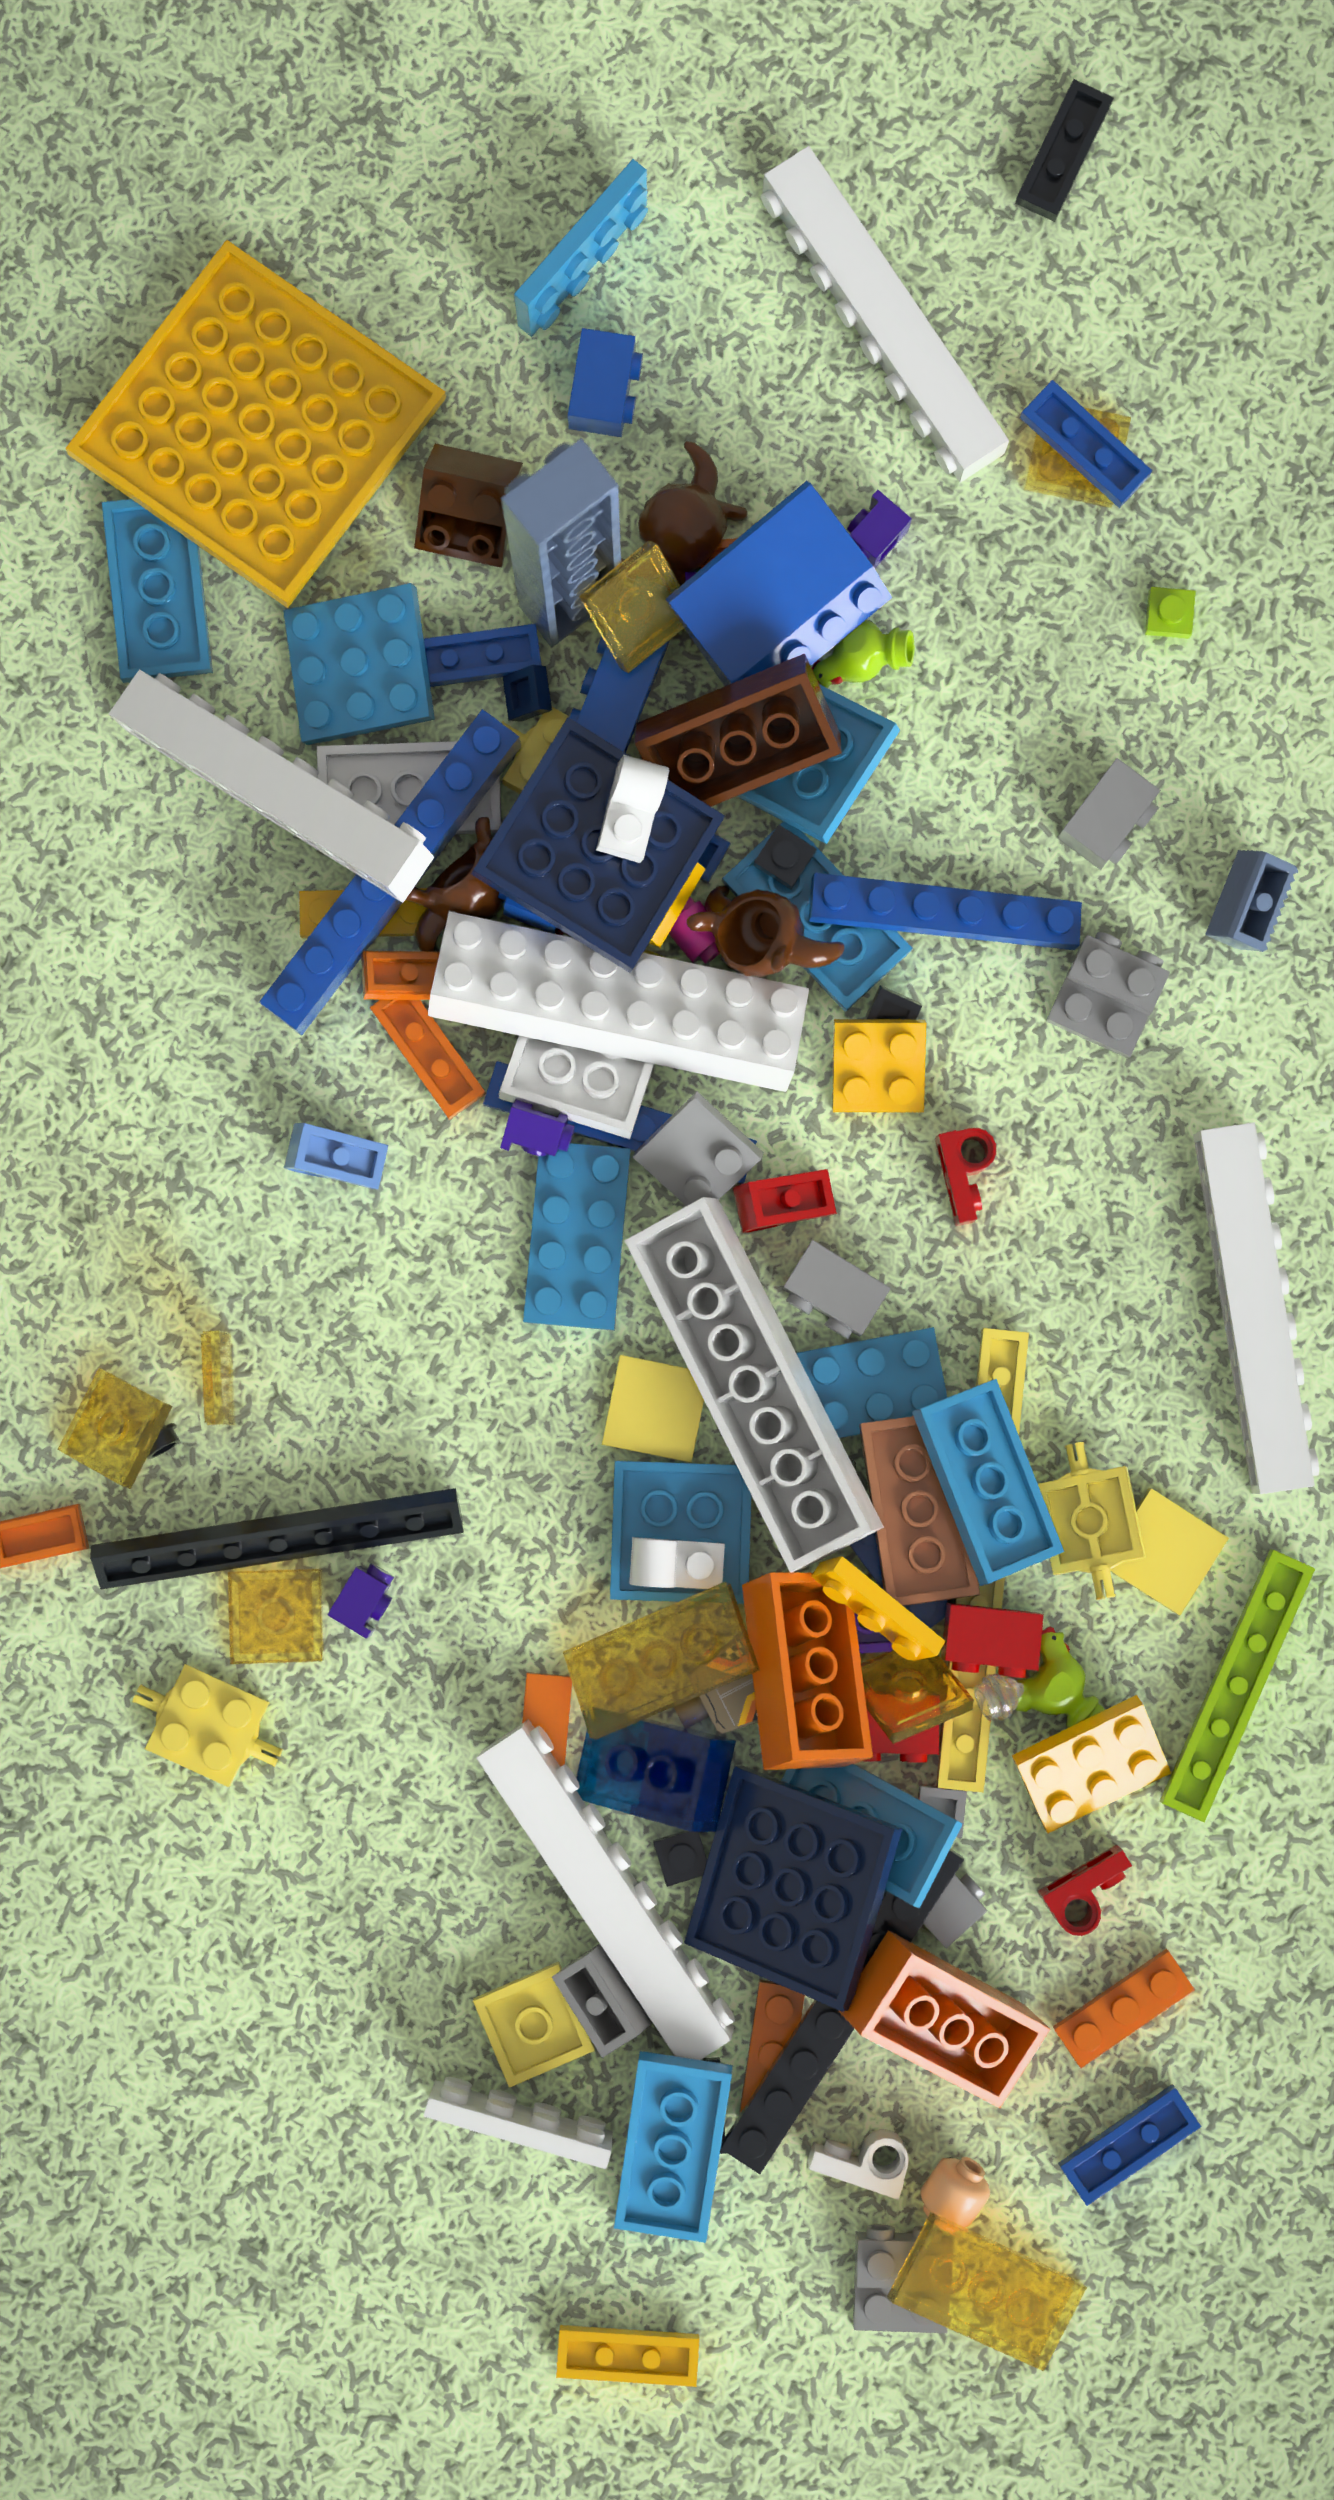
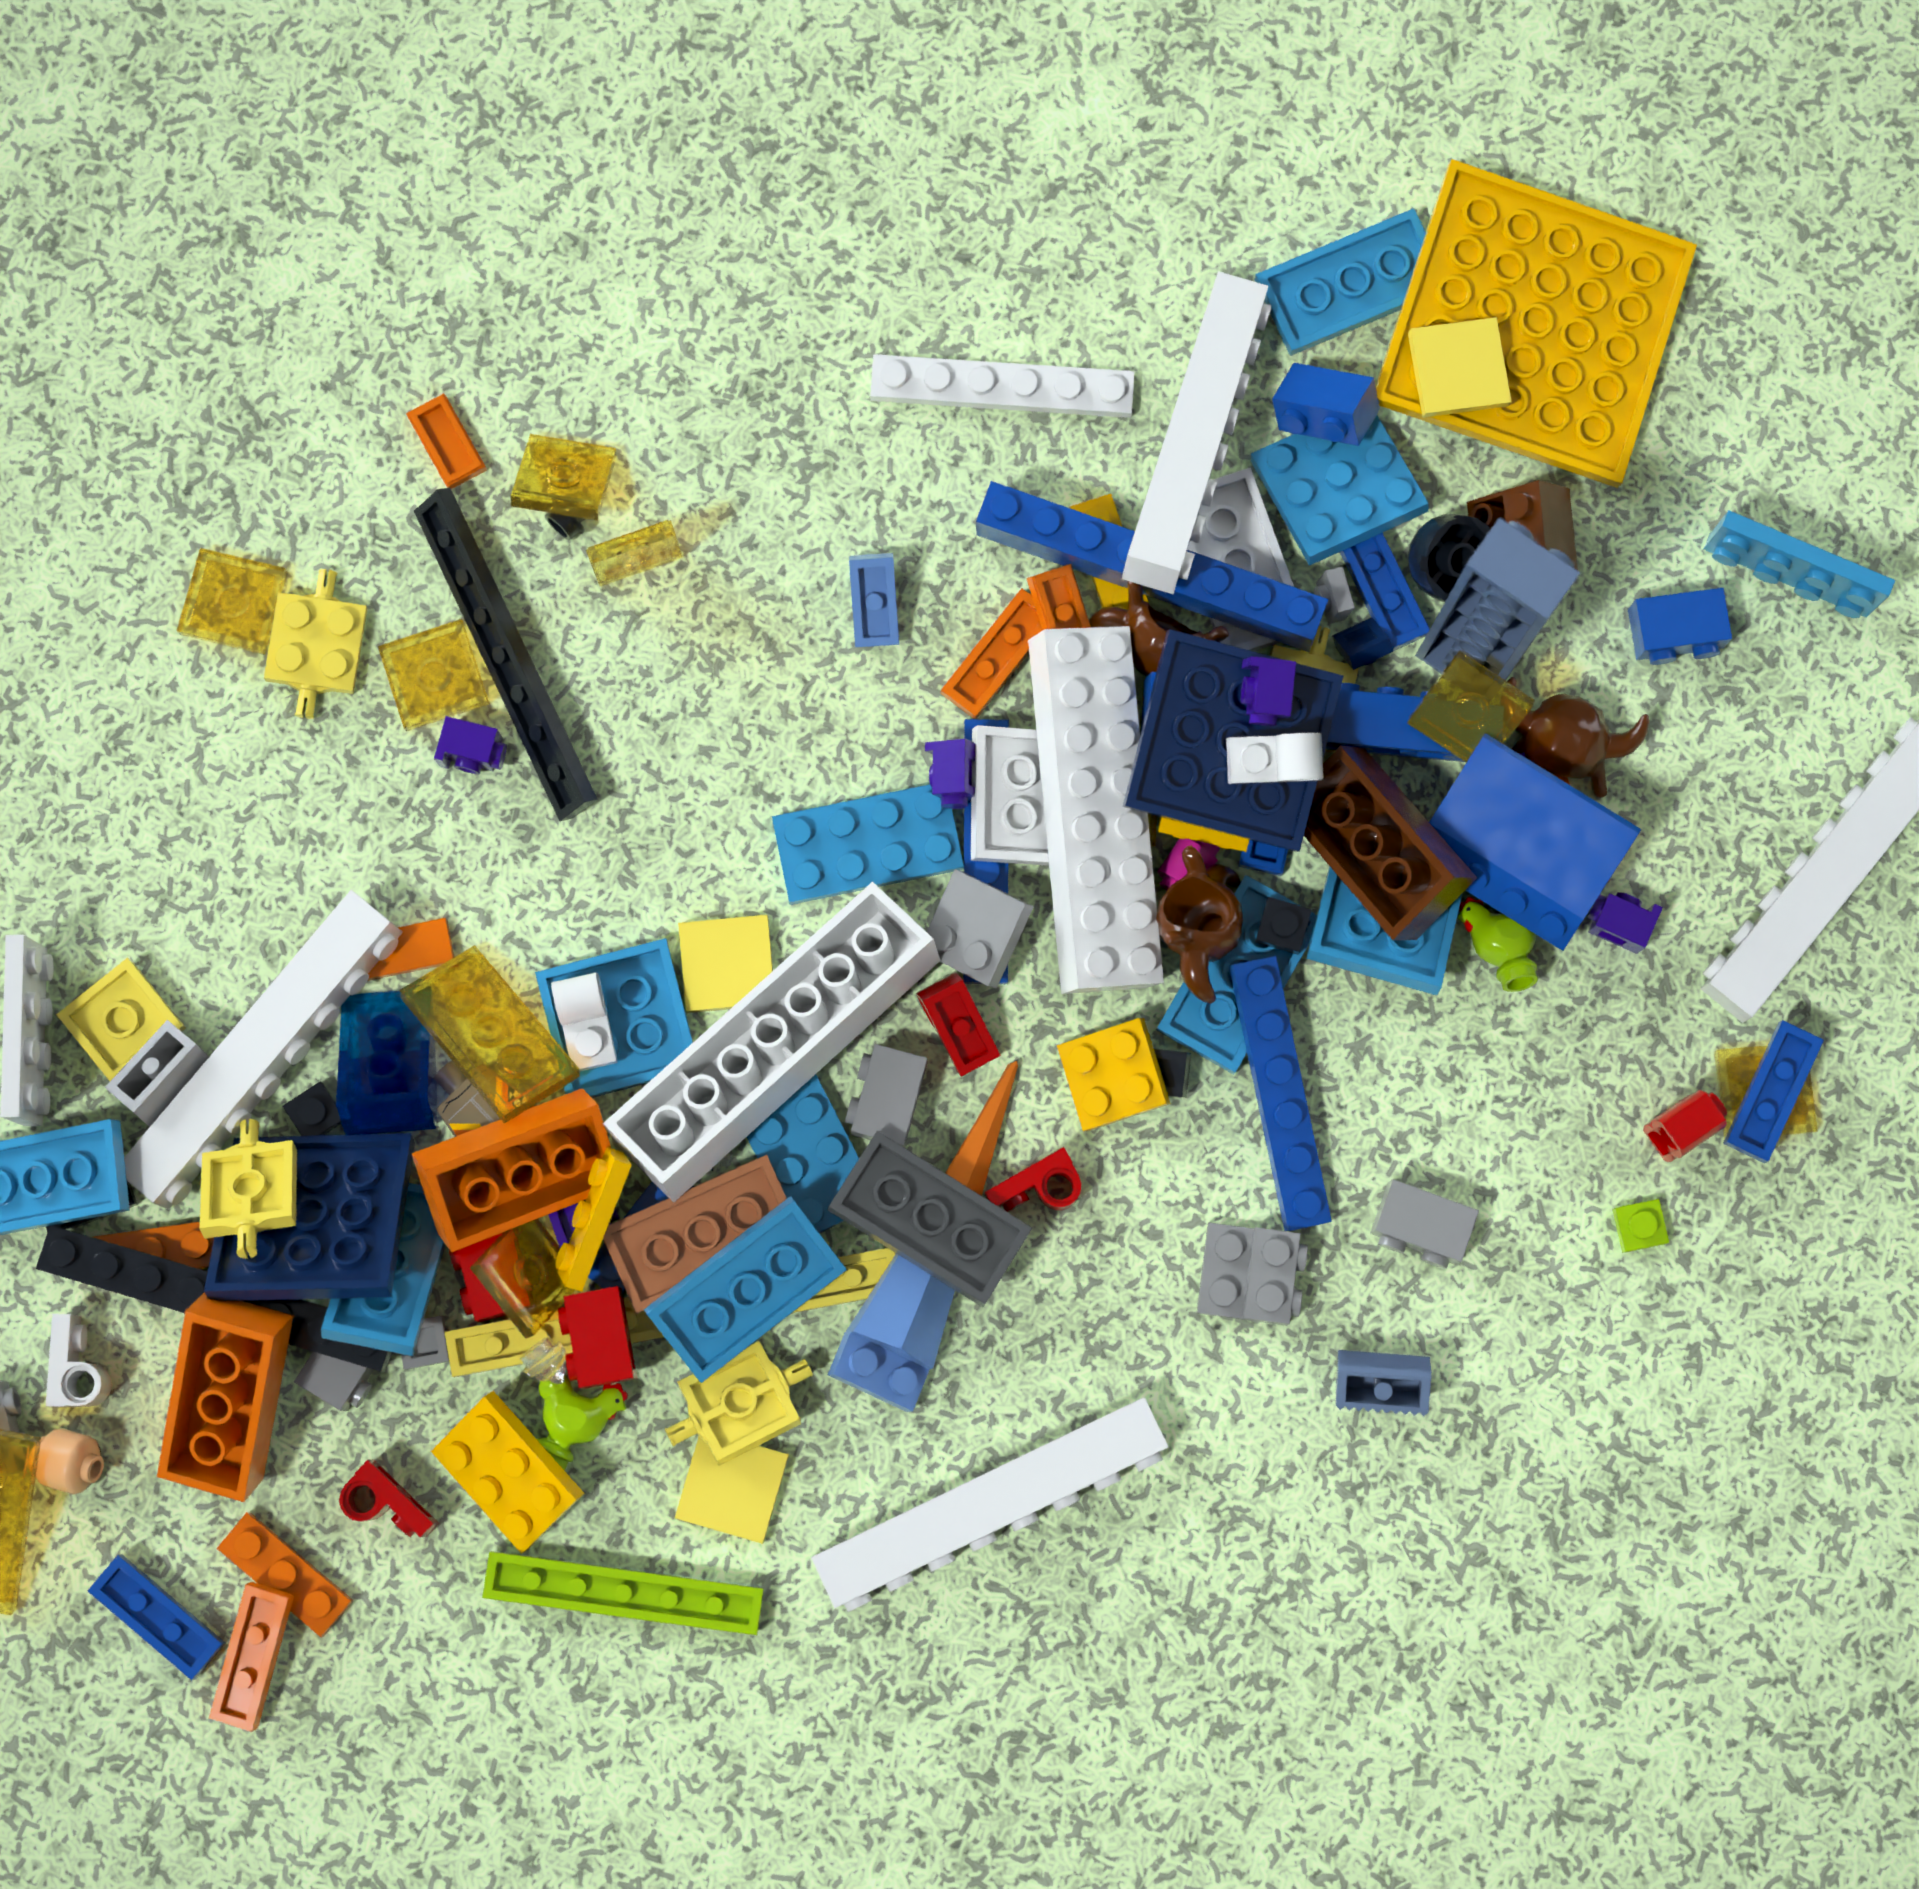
camera: 75 degrees right, 5 degrees down
(137, 1798) = (231, 601): none -> clear yellow tile
(154, 965) = (1002, 386): none -> white plate
(278, 650) = (1326, 404): none -> blue brick
(282, 508) = (1459, 367): none -> light yellow tile
(466, 703) = (1335, 588): none -> light grey plate
(471, 578) = (1442, 551): none -> black cylinder
(564, 792) = (1268, 689): none -> dark purple brick
(748, 1941) = (248, 1189): none -> light yellow plate
(972, 1283) = (929, 1219): none -> dark grey plate
(1053, 1337) = (904, 1317): none -> medium blue plate
(1093, 536) = (1686, 1125): none -> red brick
(1195, 2061) = (251, 1656): none -> orange plate

